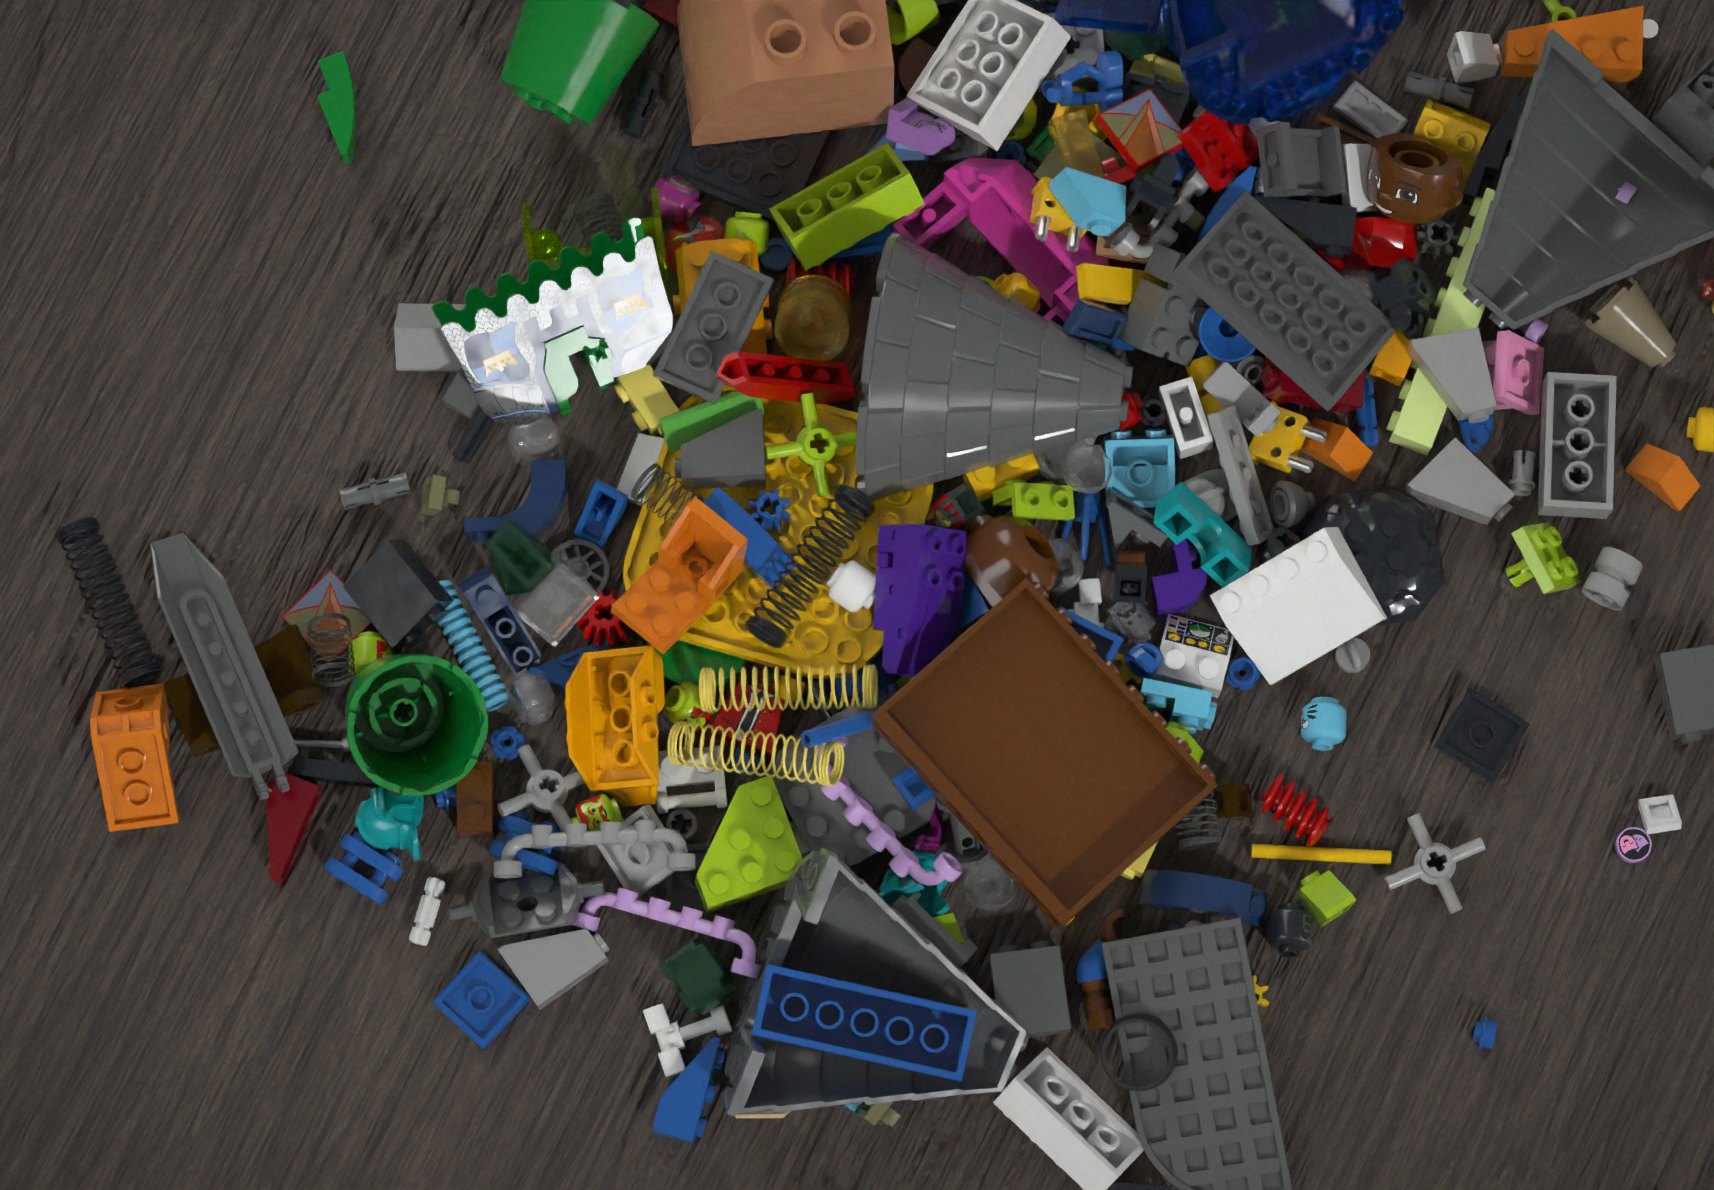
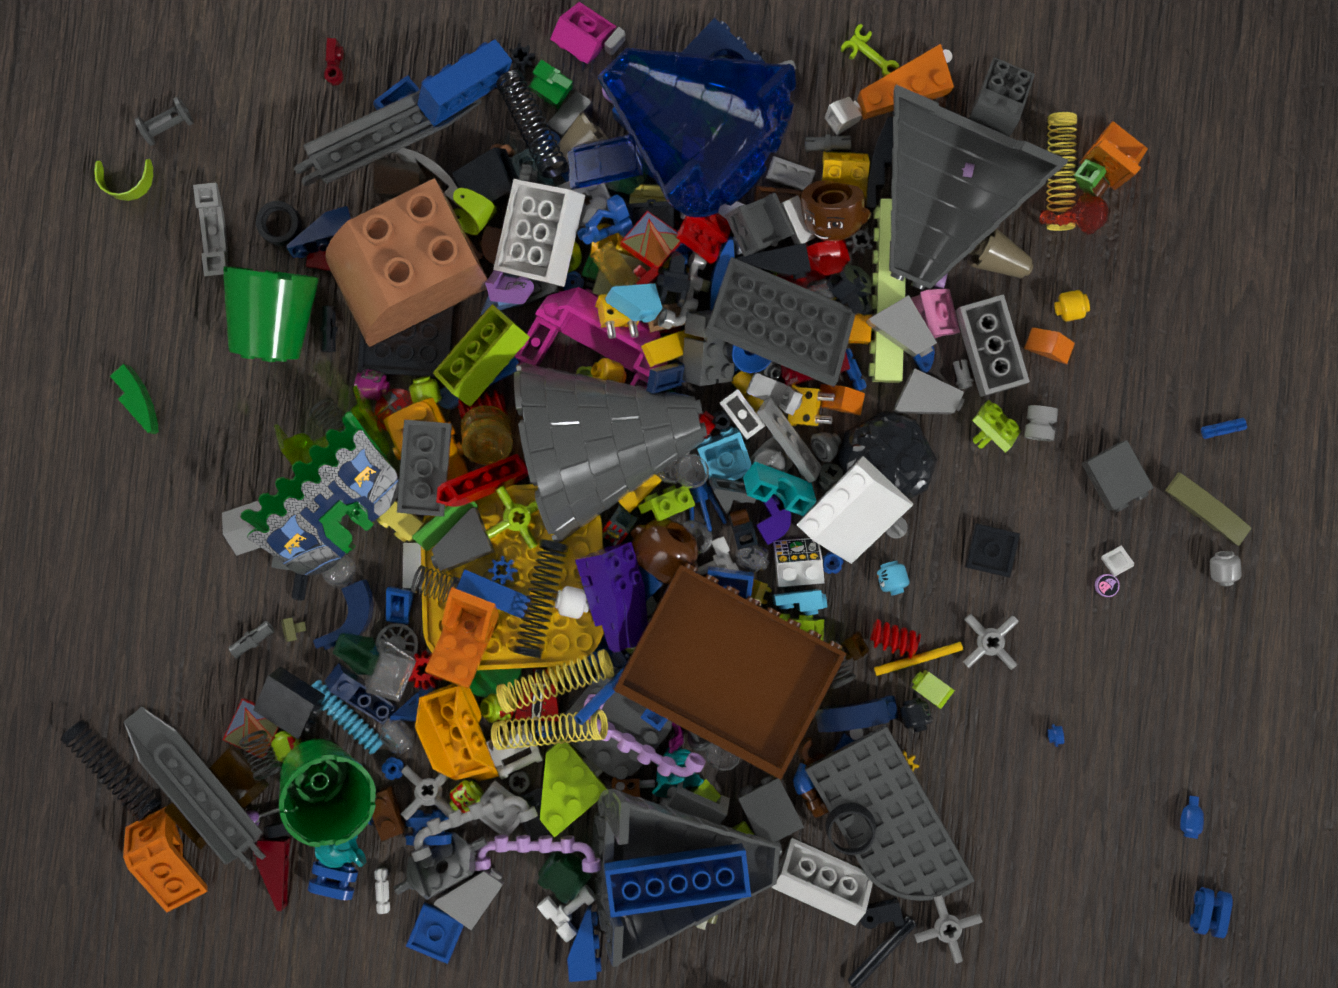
camera: 25 degrees left, 10 degrees up
(1141, 662) = (769, 584): blue tile -> none

